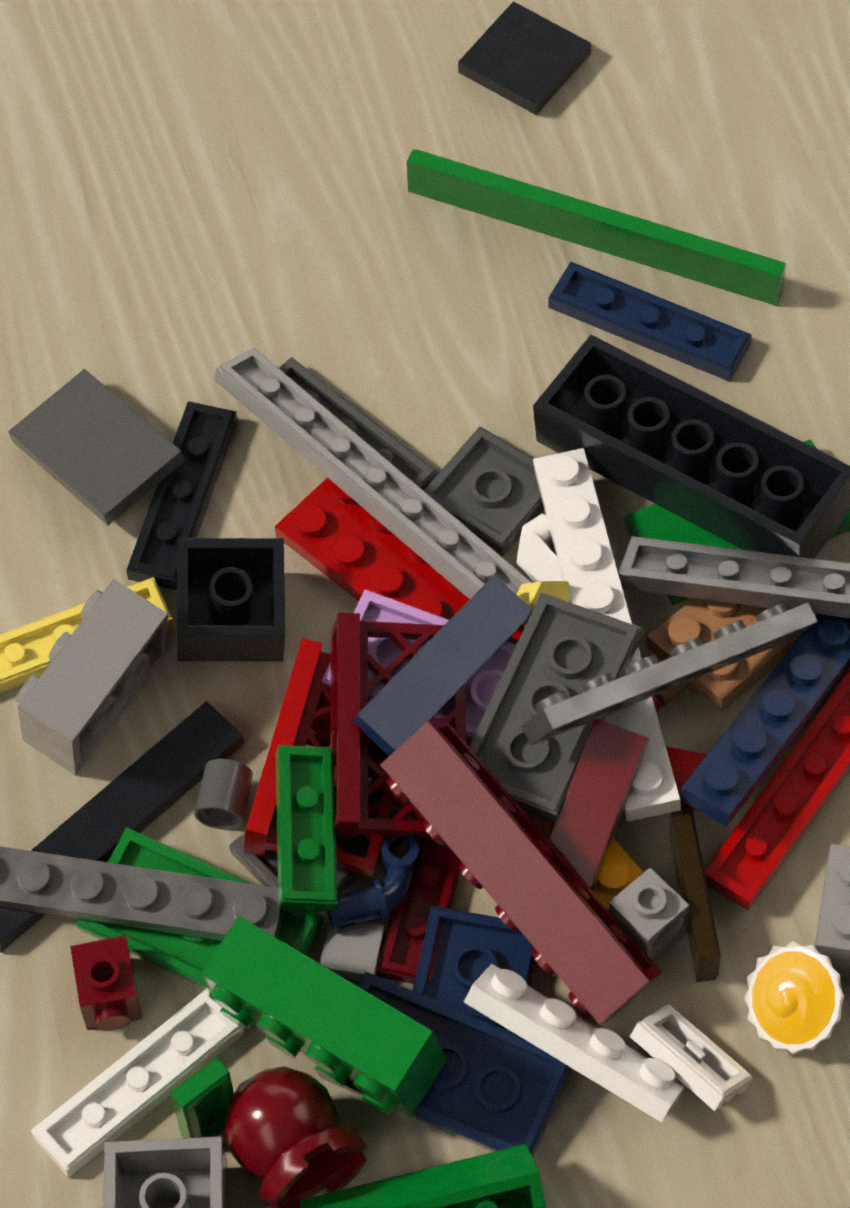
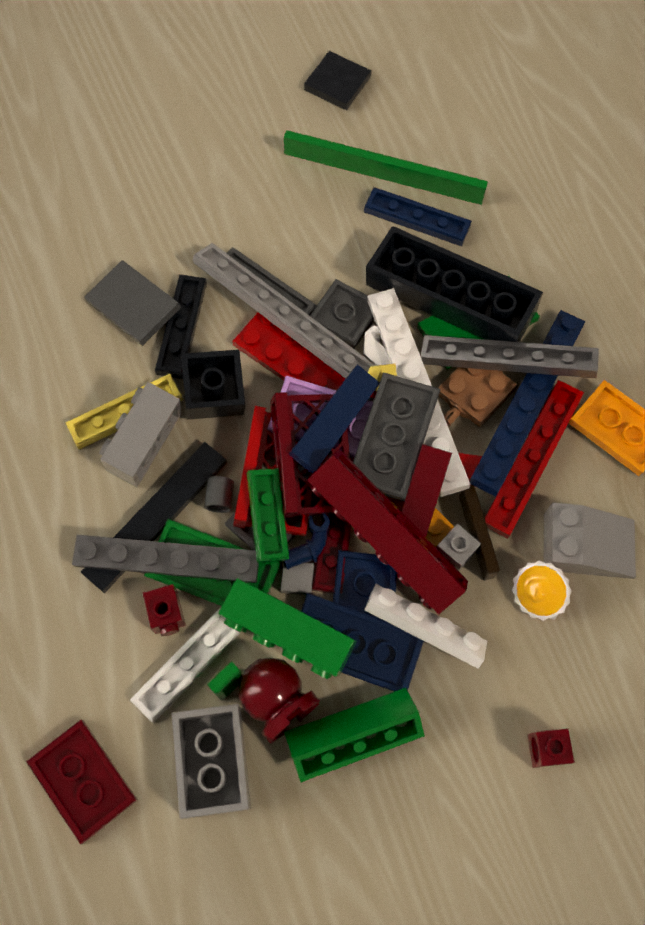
camera: 10 degrees left, 10 degrees up
(649, 677) = (450, 417): flat silver plate -> none
(692, 1056) = (488, 626): white tile -> none

